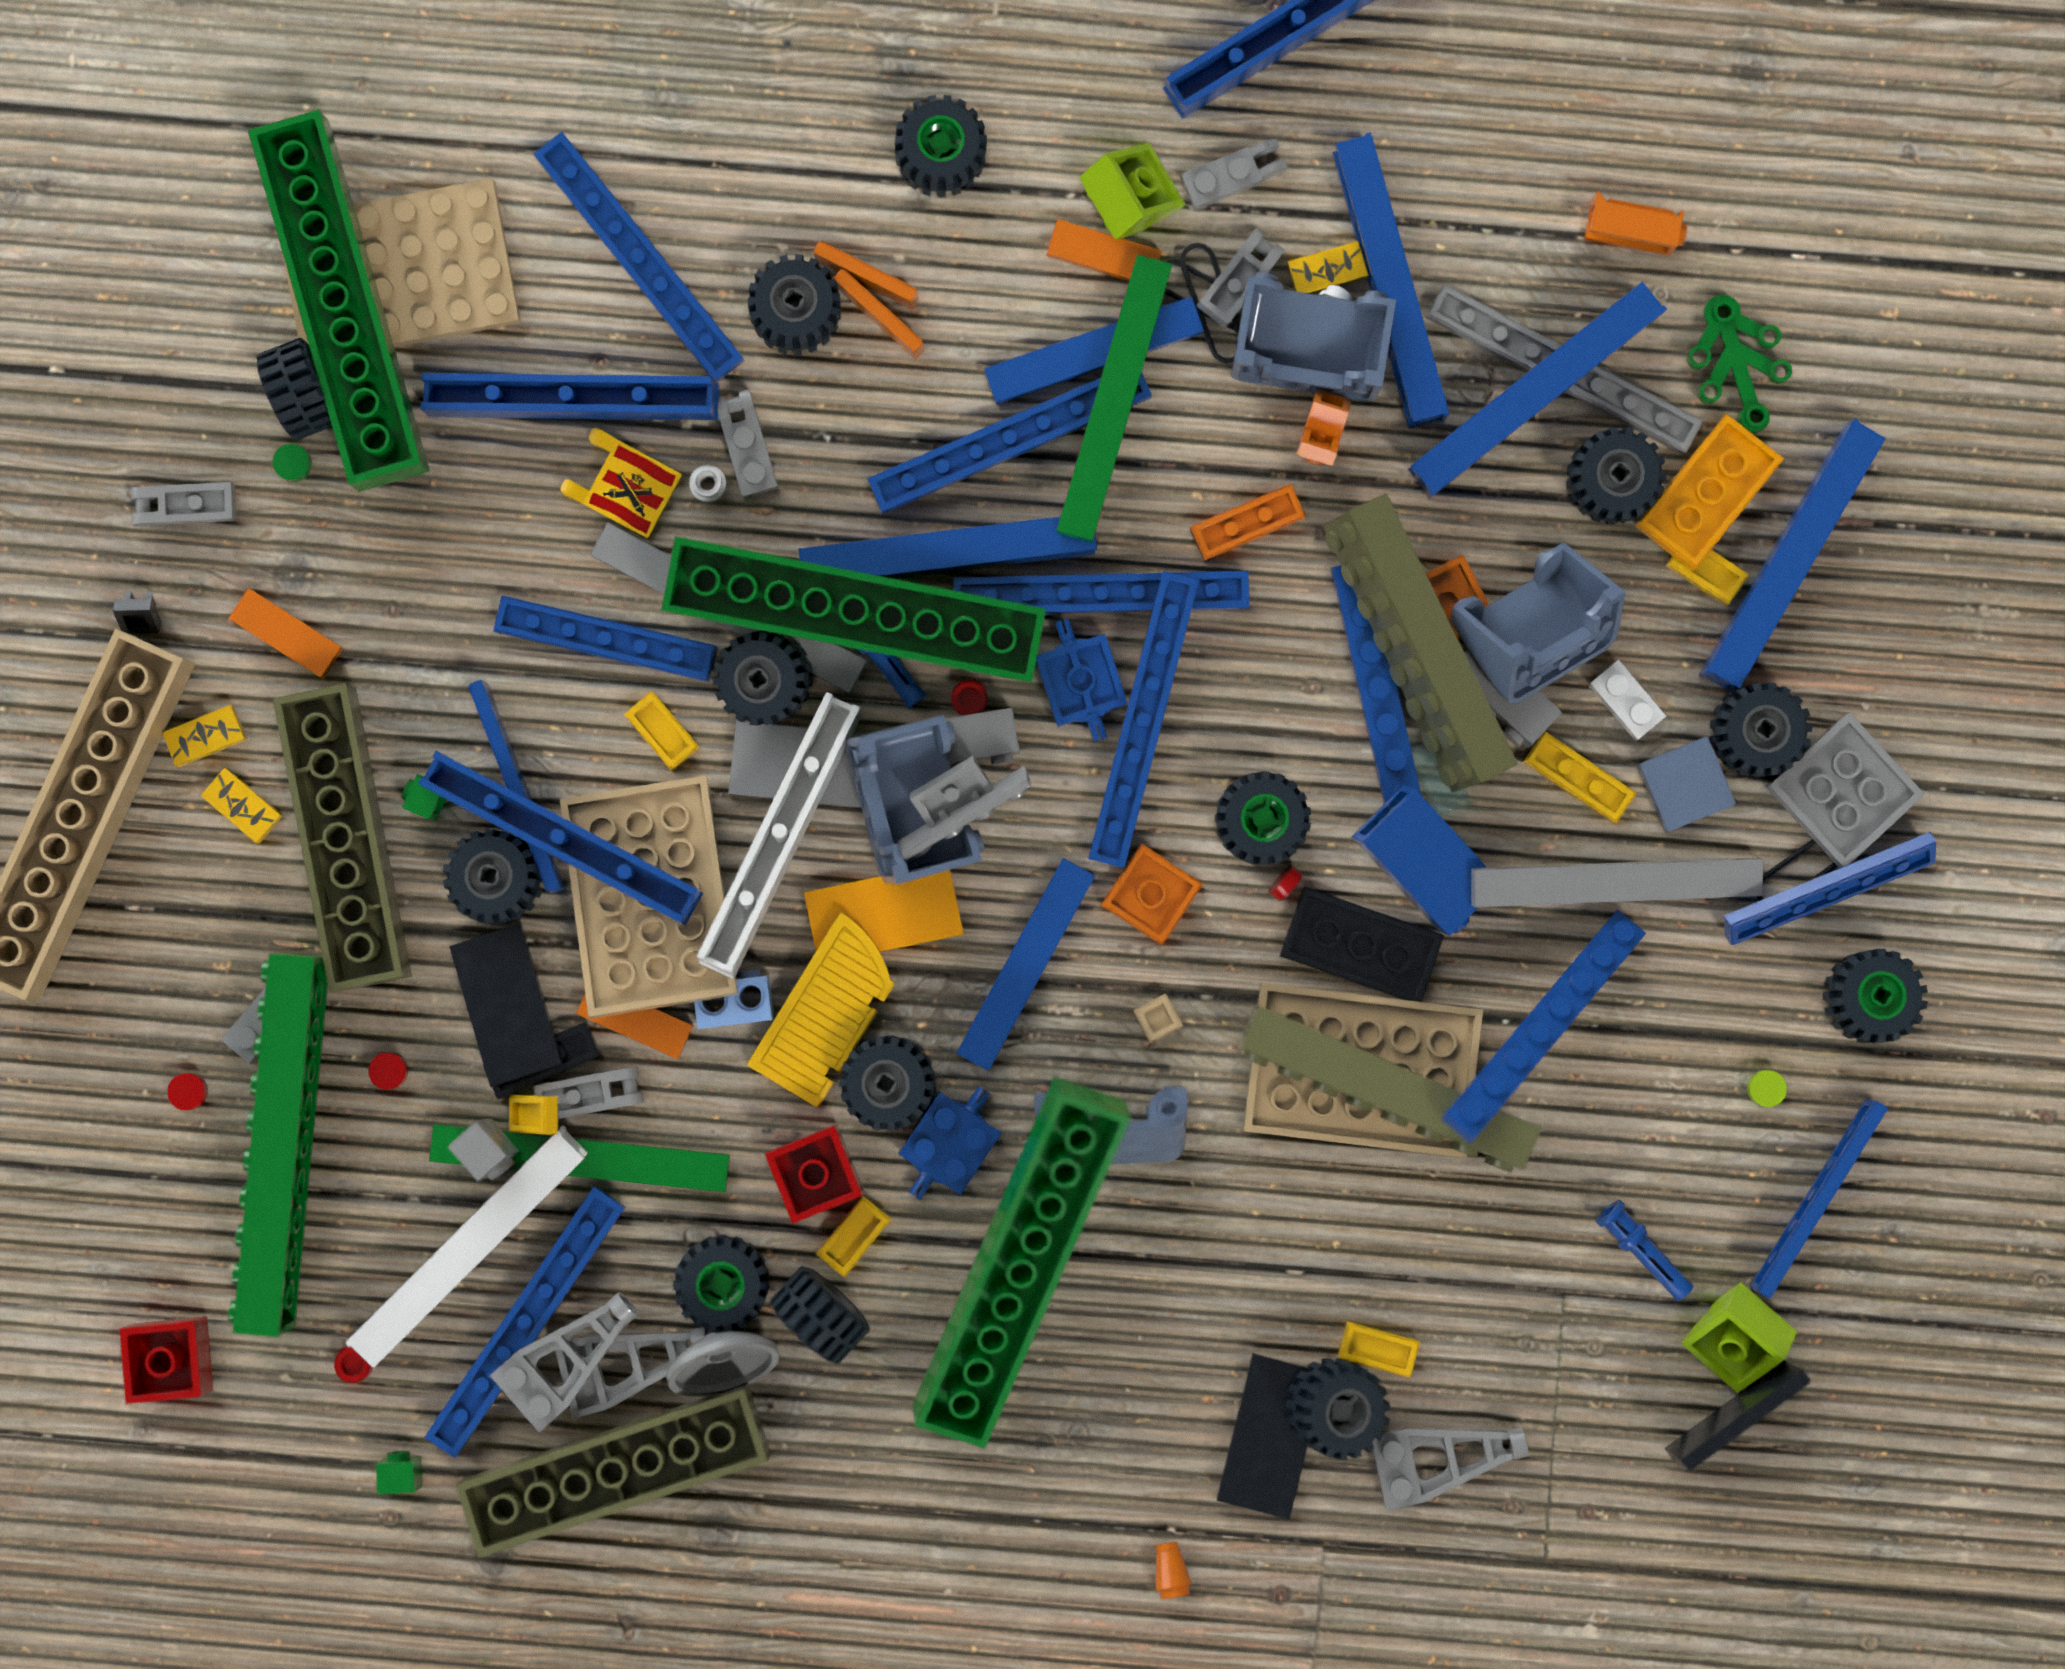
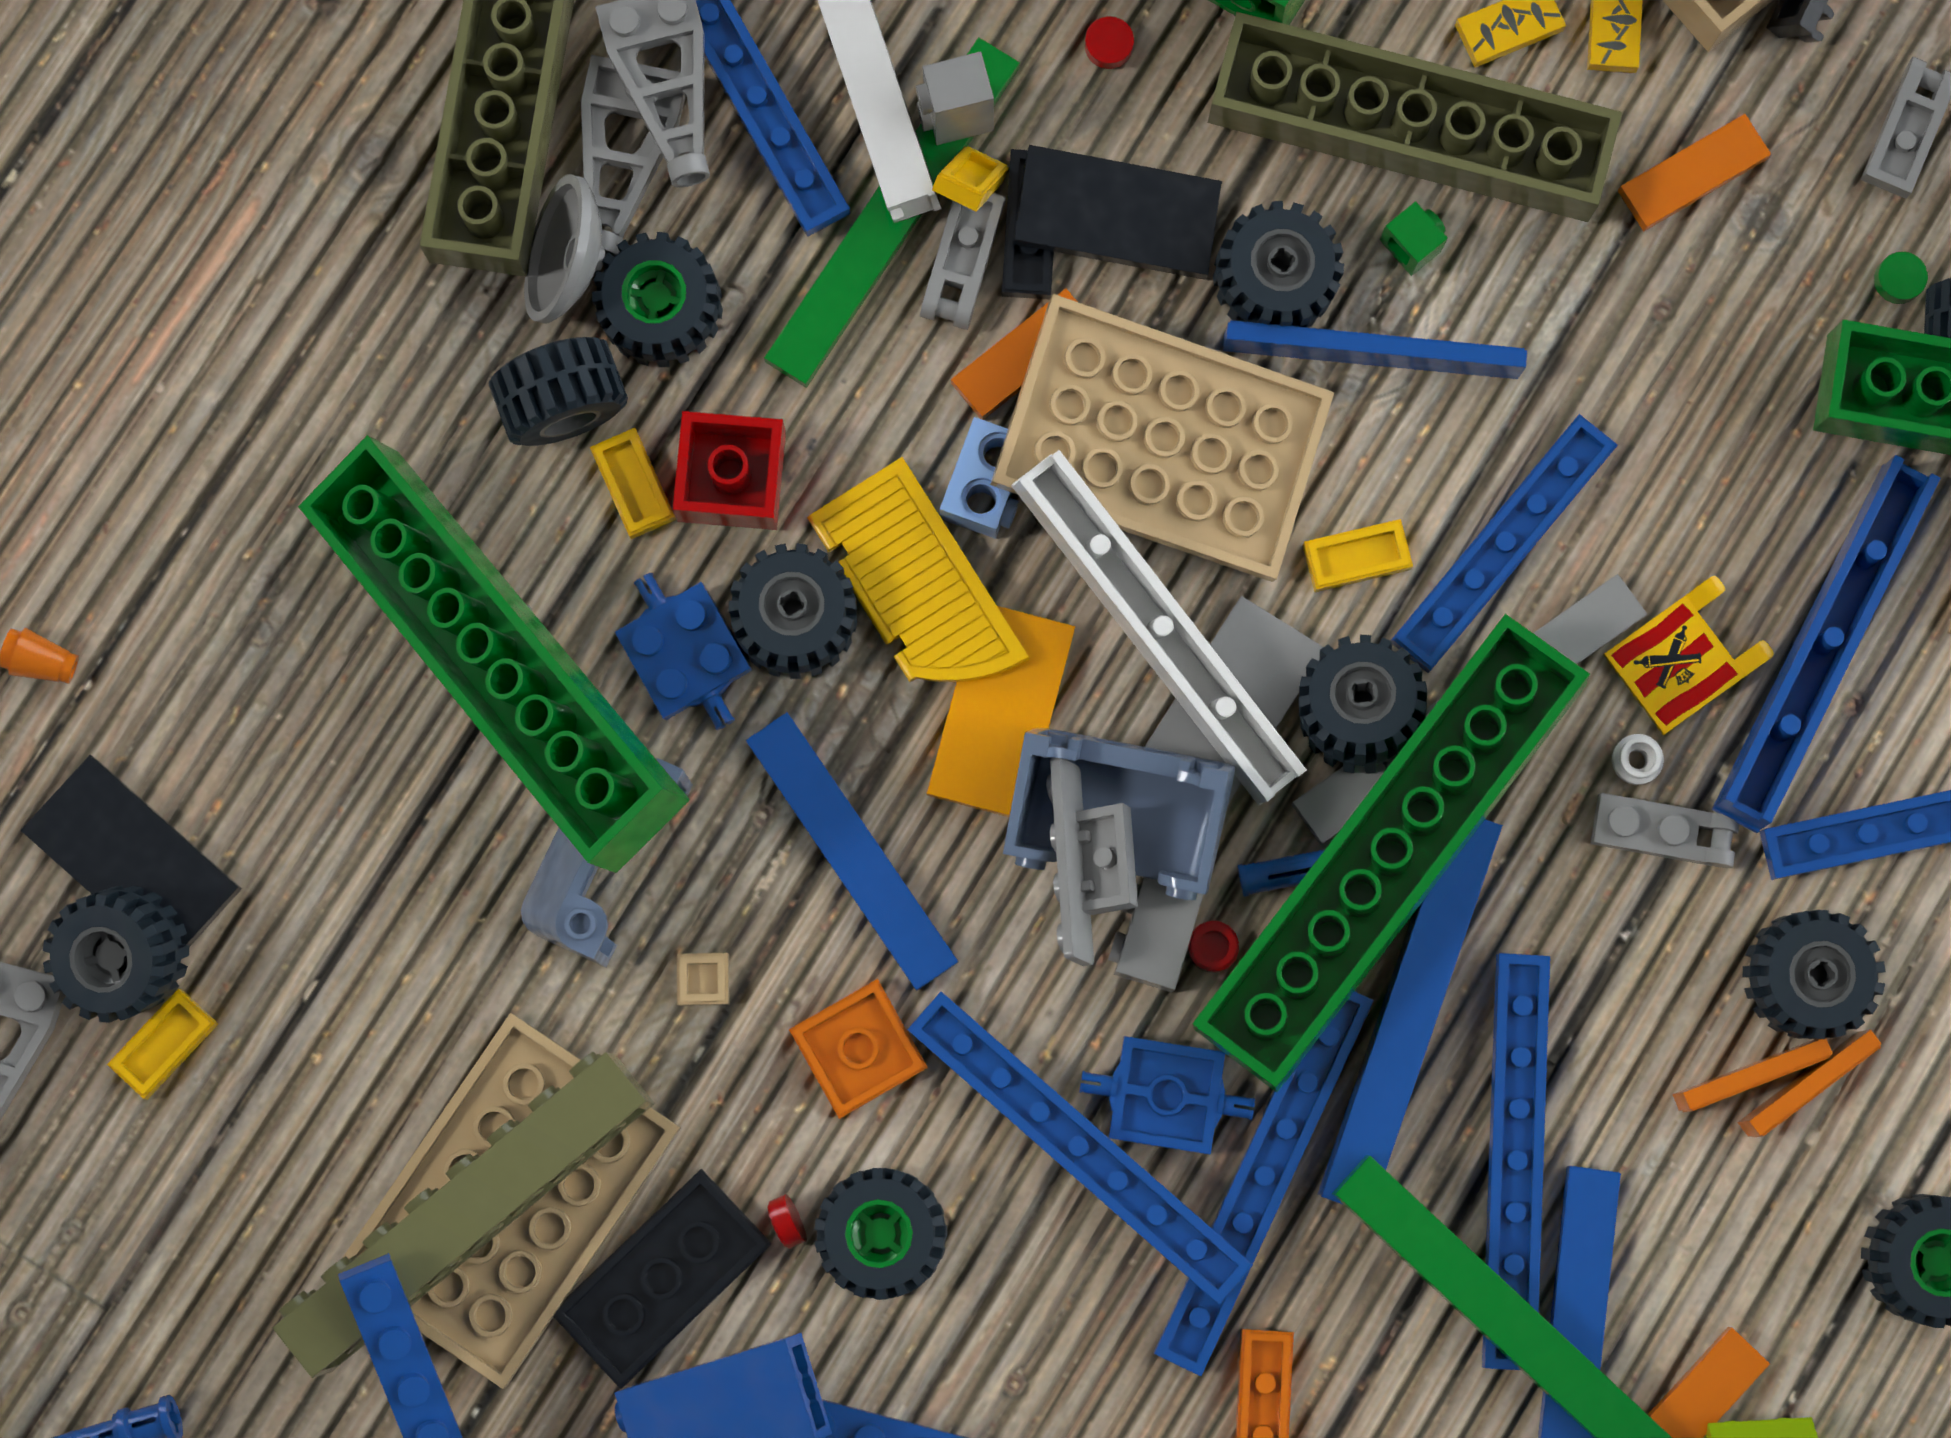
camera: 115 degrees right, 5 degrees down
(561, 838) = (1283, 365): blue tile -> none

